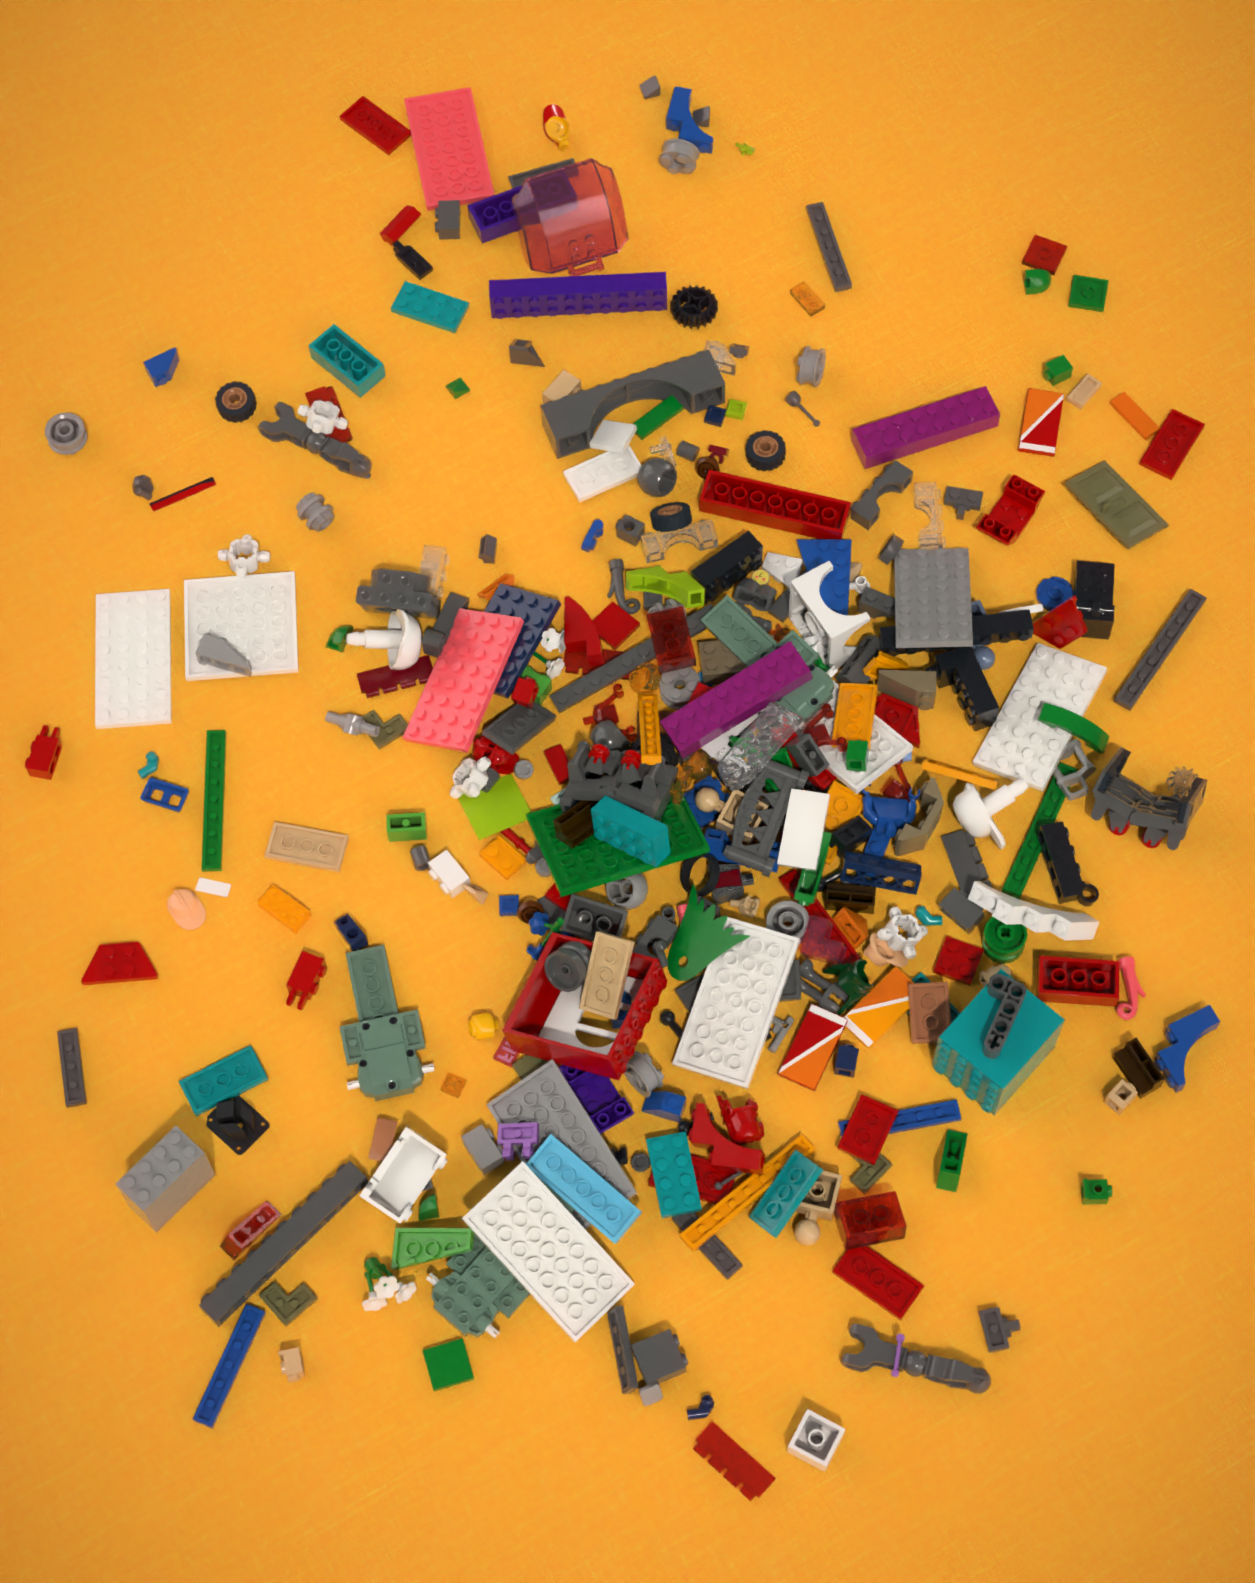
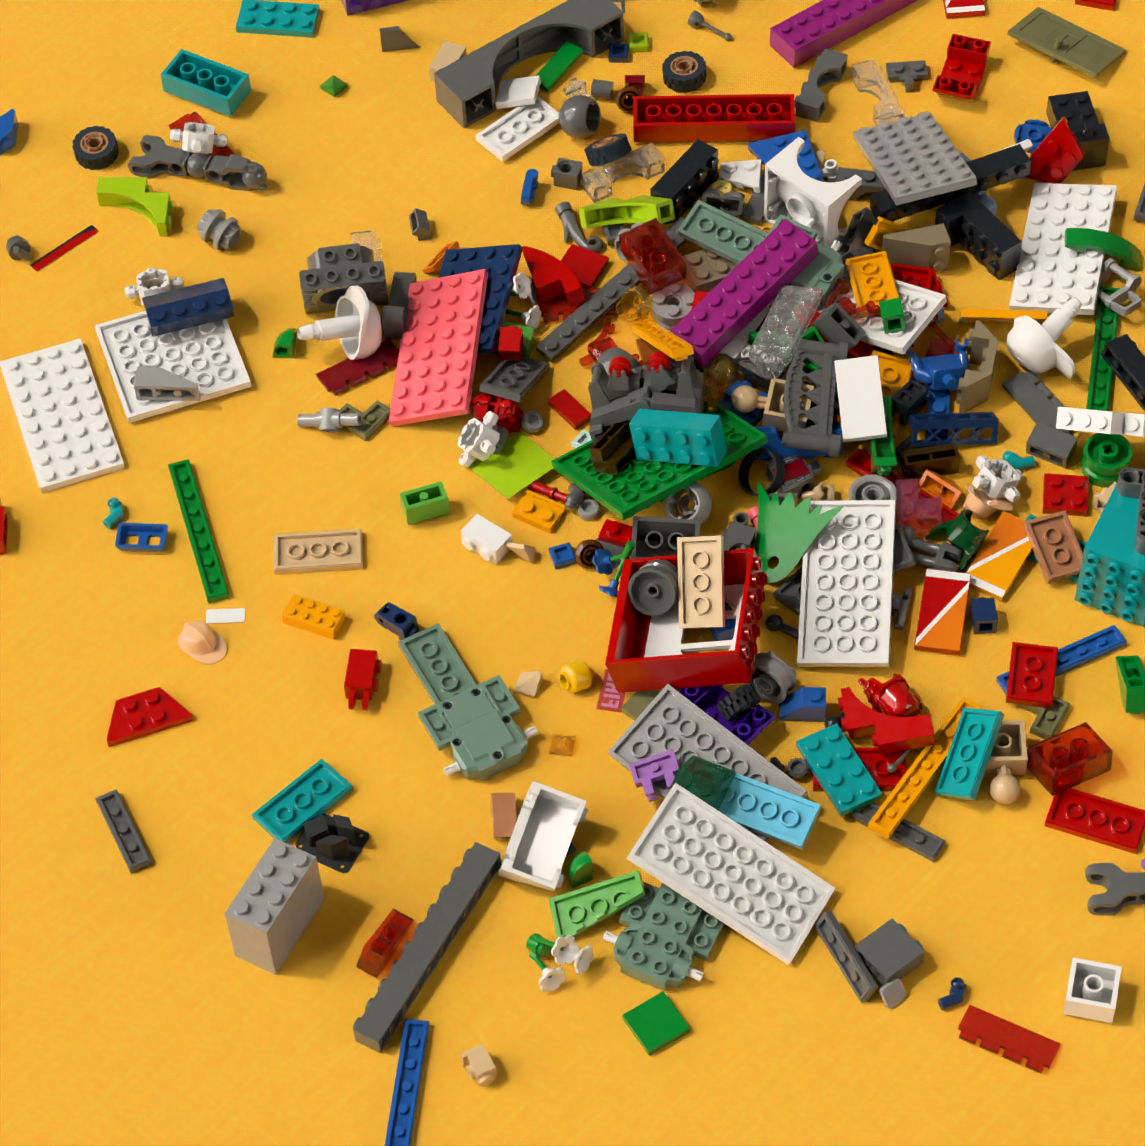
camera: 15 degrees left, 10 degrees down
(257, 459) = (136, 195): none -> lime arch
(264, 584) = (188, 307): none -> dark blue slope
(288, 1307) = (454, 1011): olive tile -> none
(420, 858) = (449, 531): dark grey piece -> none
(442, 1020) = (528, 683): none -> tan slope
(483, 1149) = (619, 797): light grey brick -> none
(550, 1161) = (704, 780): none -> clear green slope
(606, 1093) = (739, 702): none -> black tyre
(891, 549) = (849, 131): dark grey hat -> none

